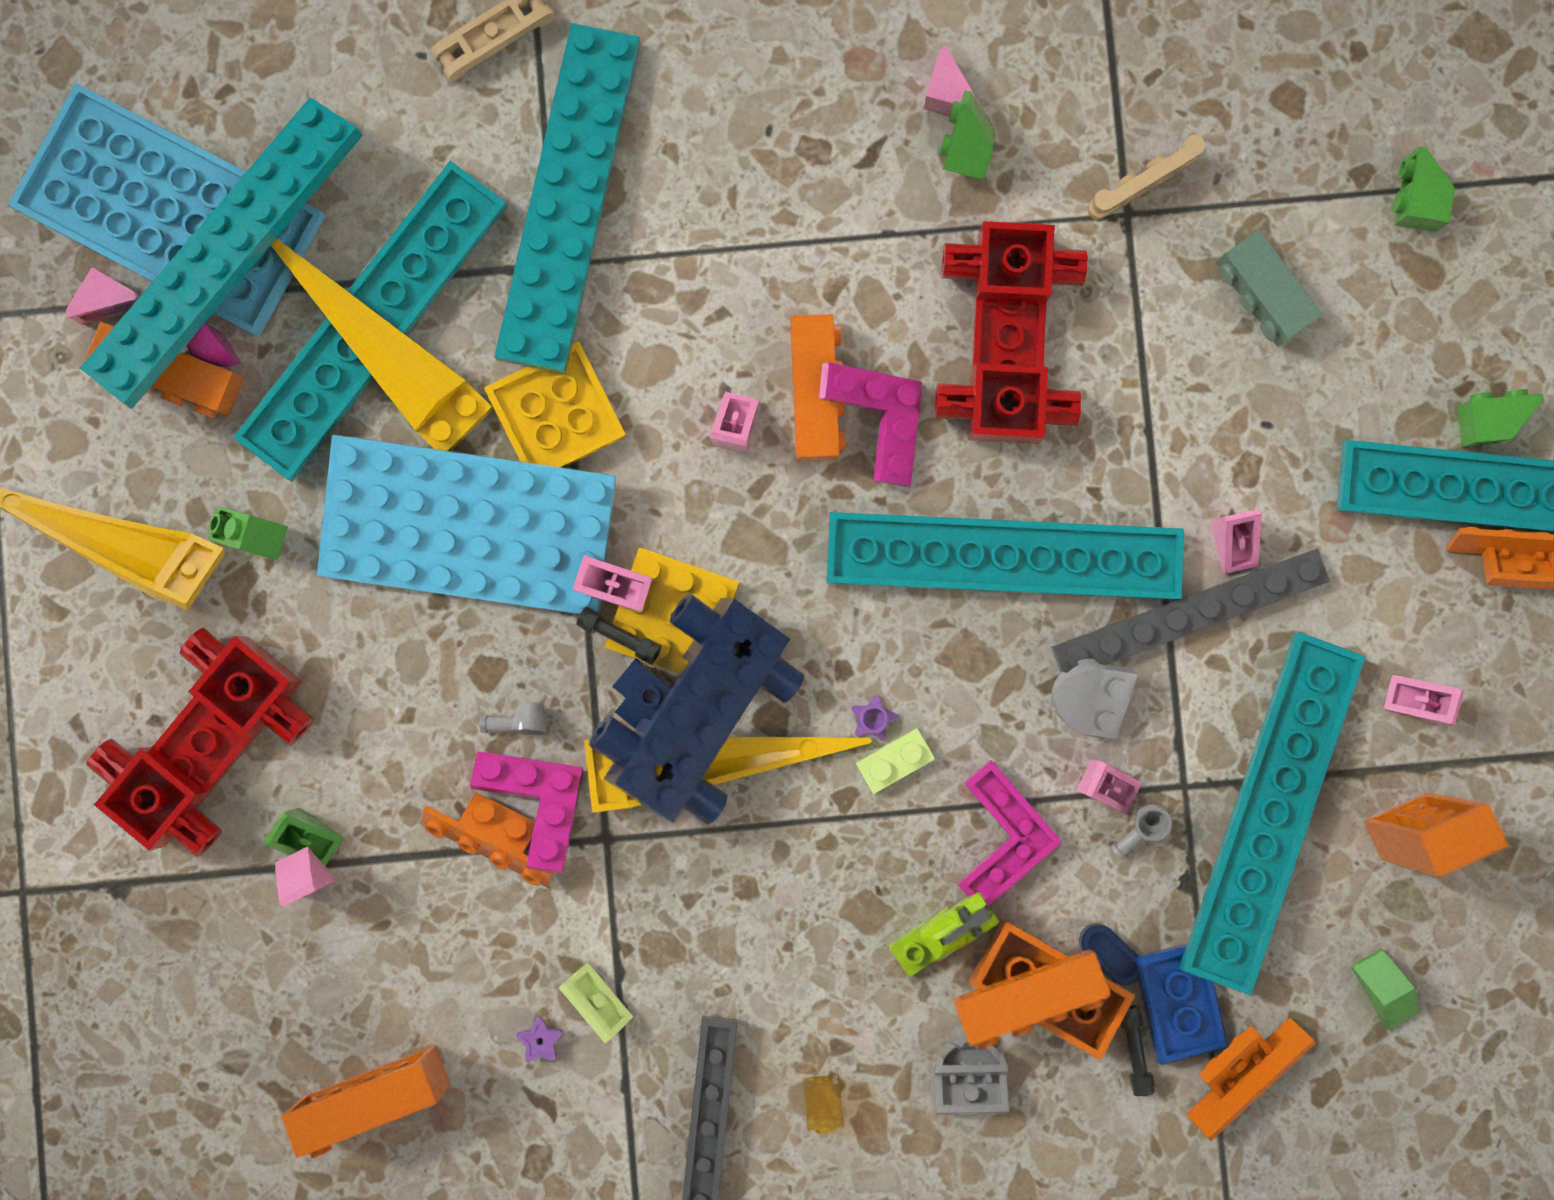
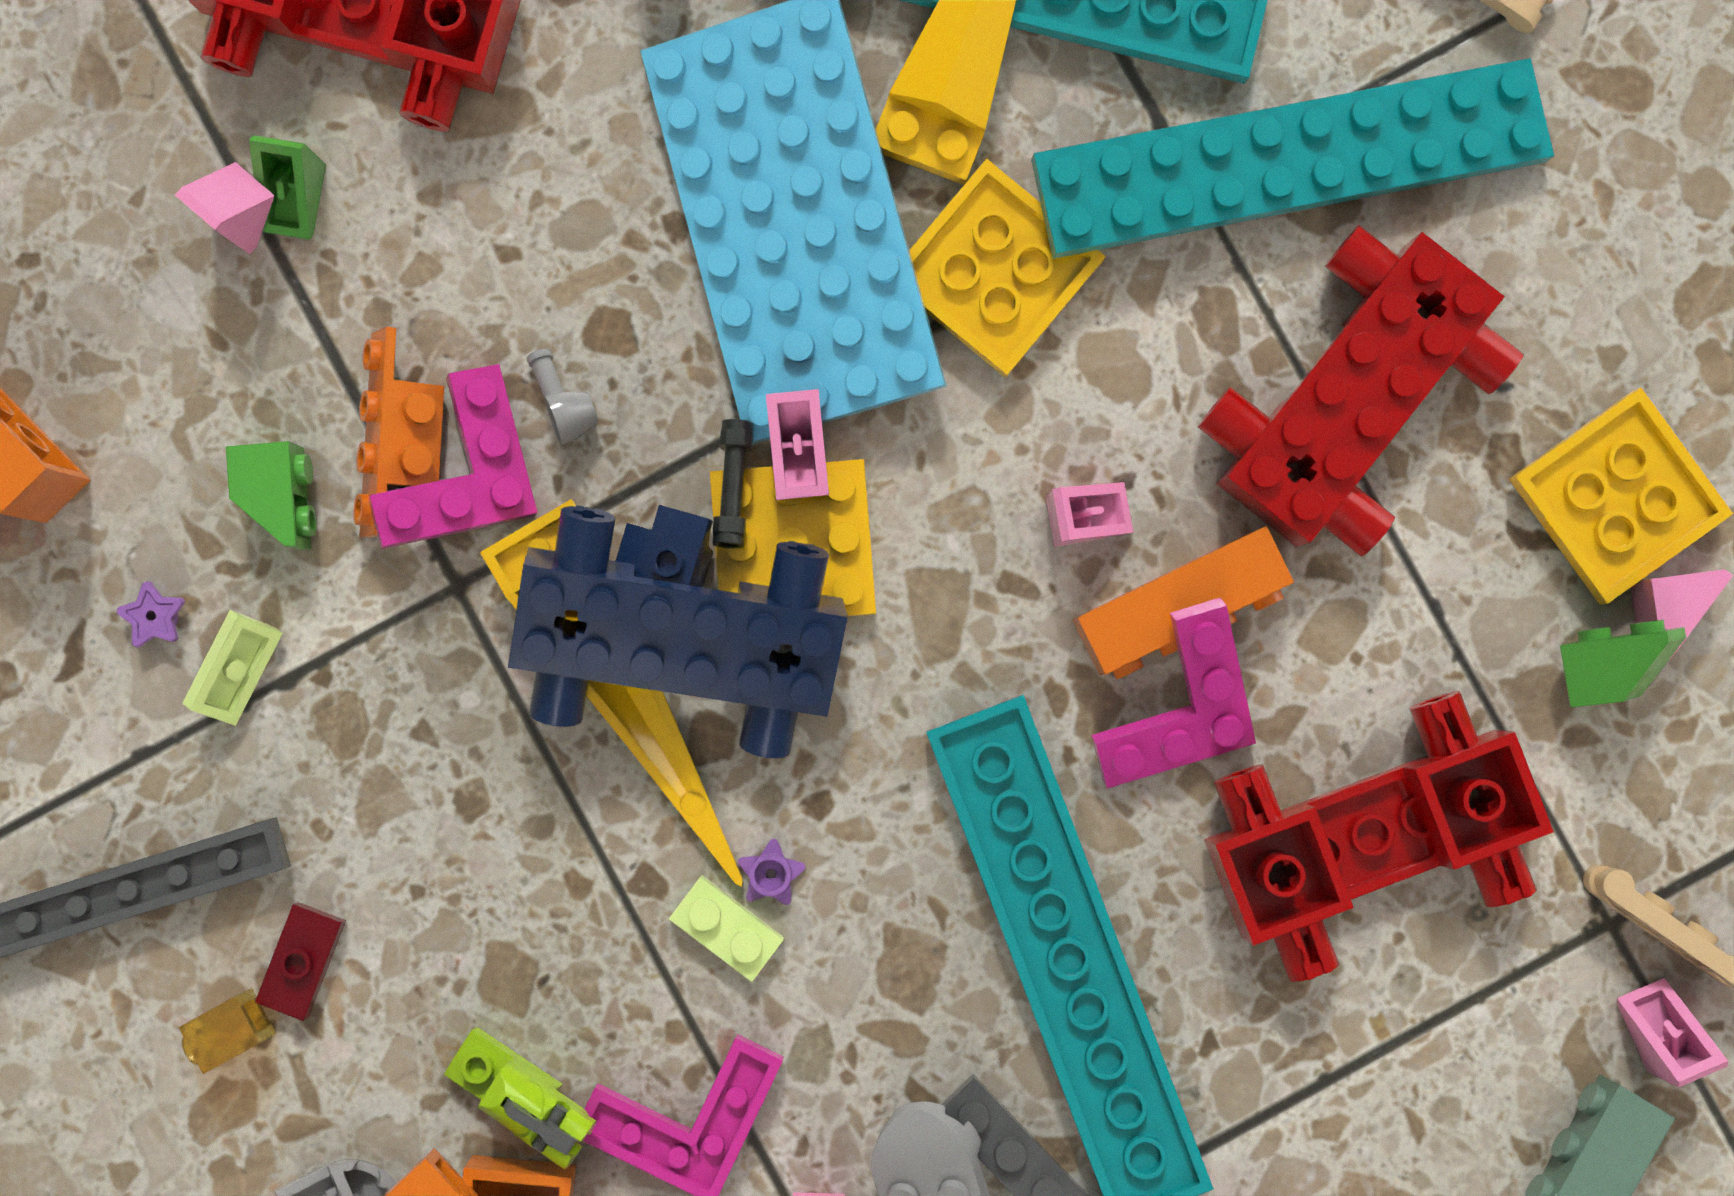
camera: 70 degrees right, 0 degrees up
(491, 929) = (272, 489): none -> bright green slope
(732, 220) = (1361, 390): none -> red piece
(799, 1038) = (300, 961): none -> dark red plate
(867, 90) = (1620, 496): none -> yellow plate
(1208, 210) = (1669, 1035): none -> bright pink slope

